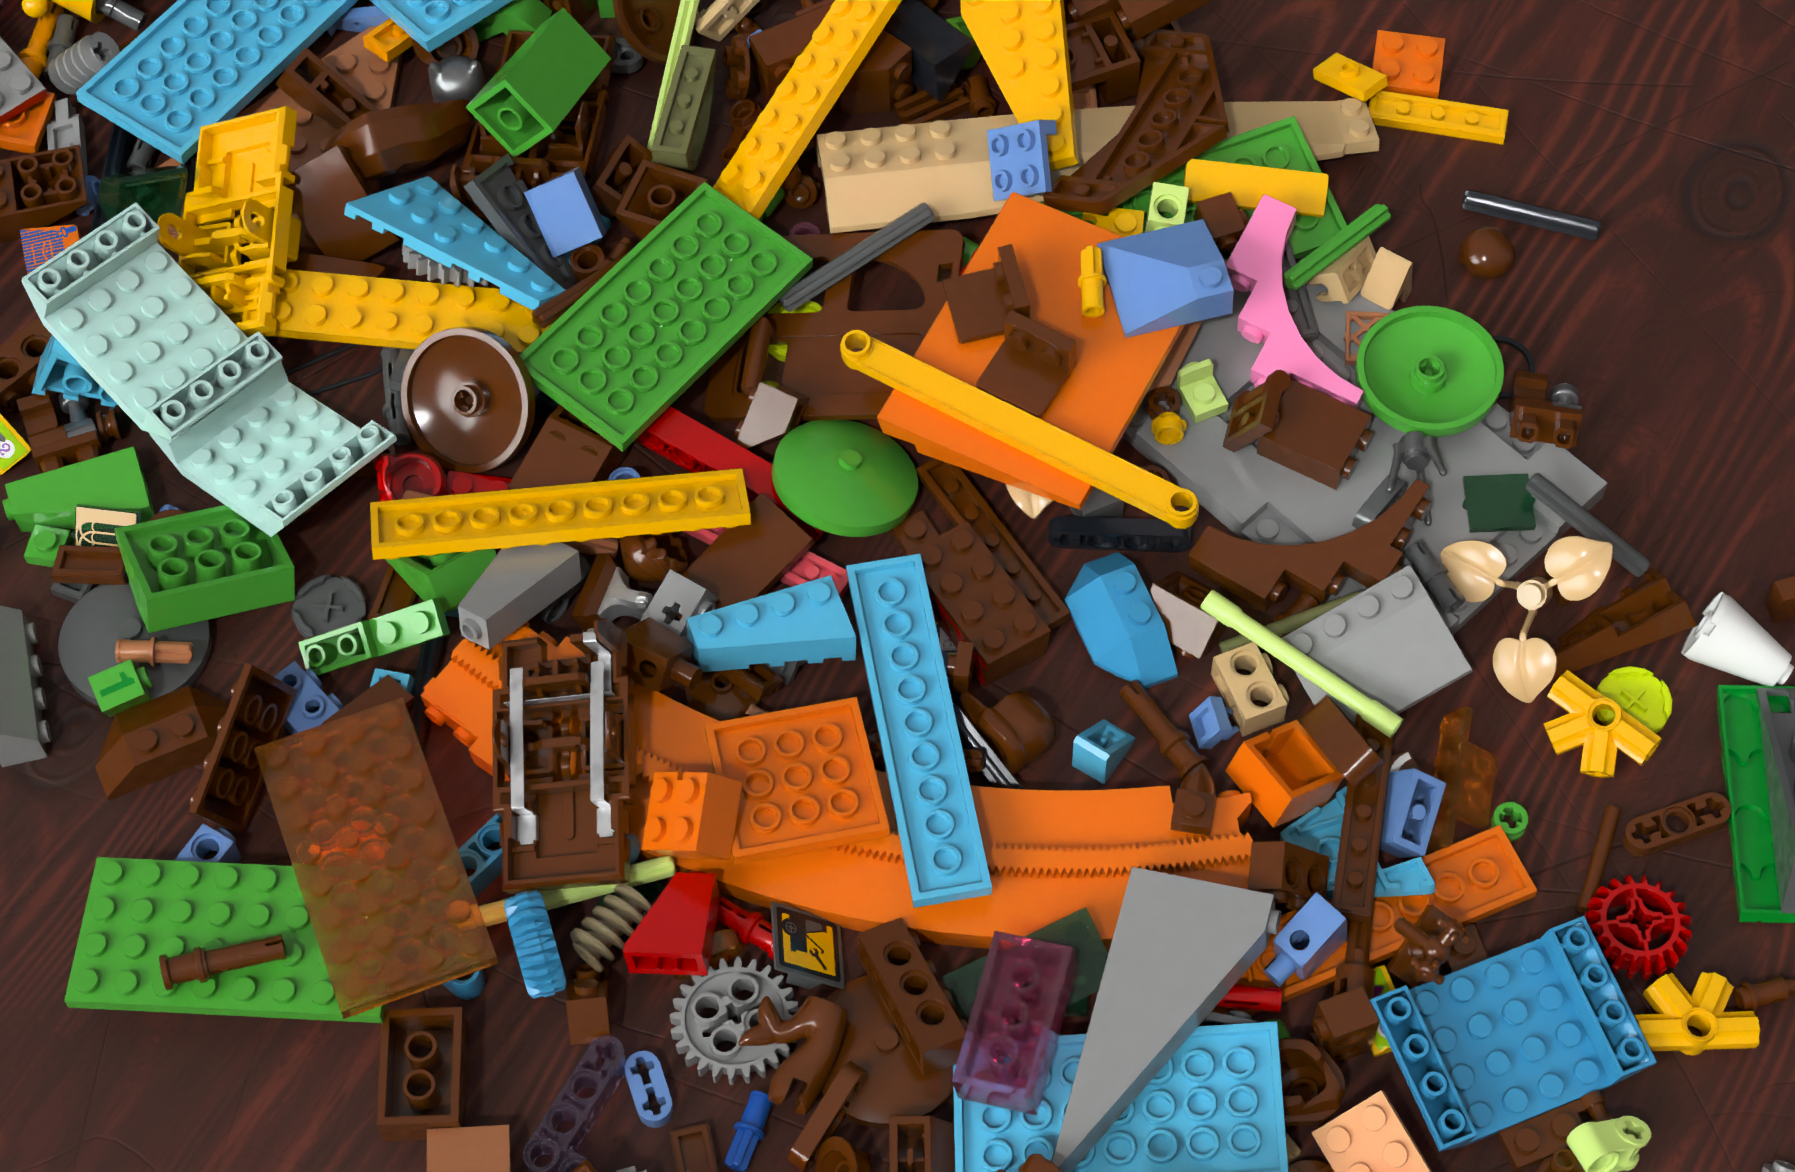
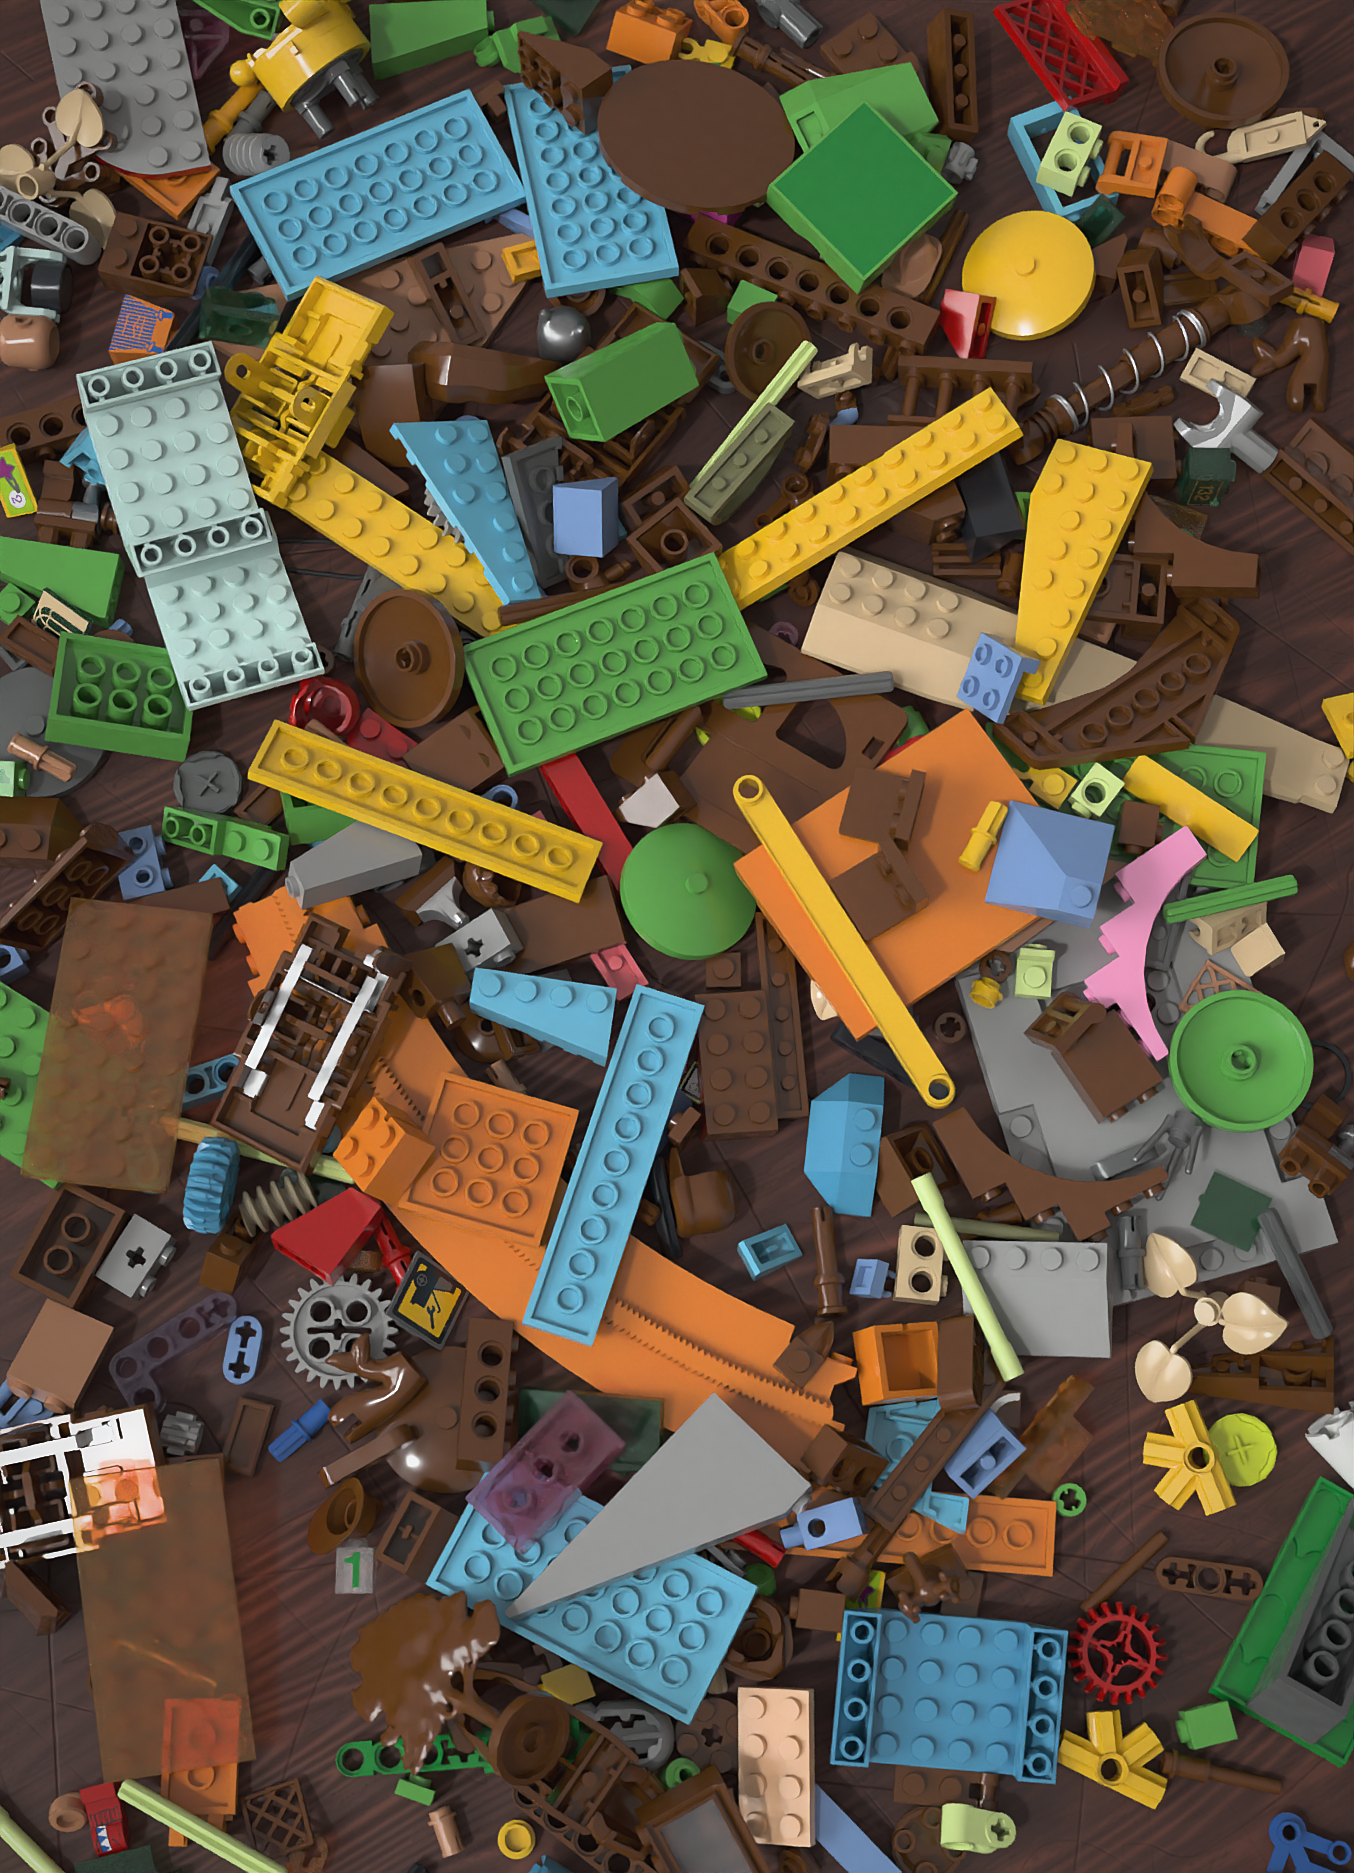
camera: 25 degrees right, 15 degrees up
(488, 1035) = (144, 1240): none -> light grey brick
(1757, 946) = (1206, 1725): none -> bright green brick

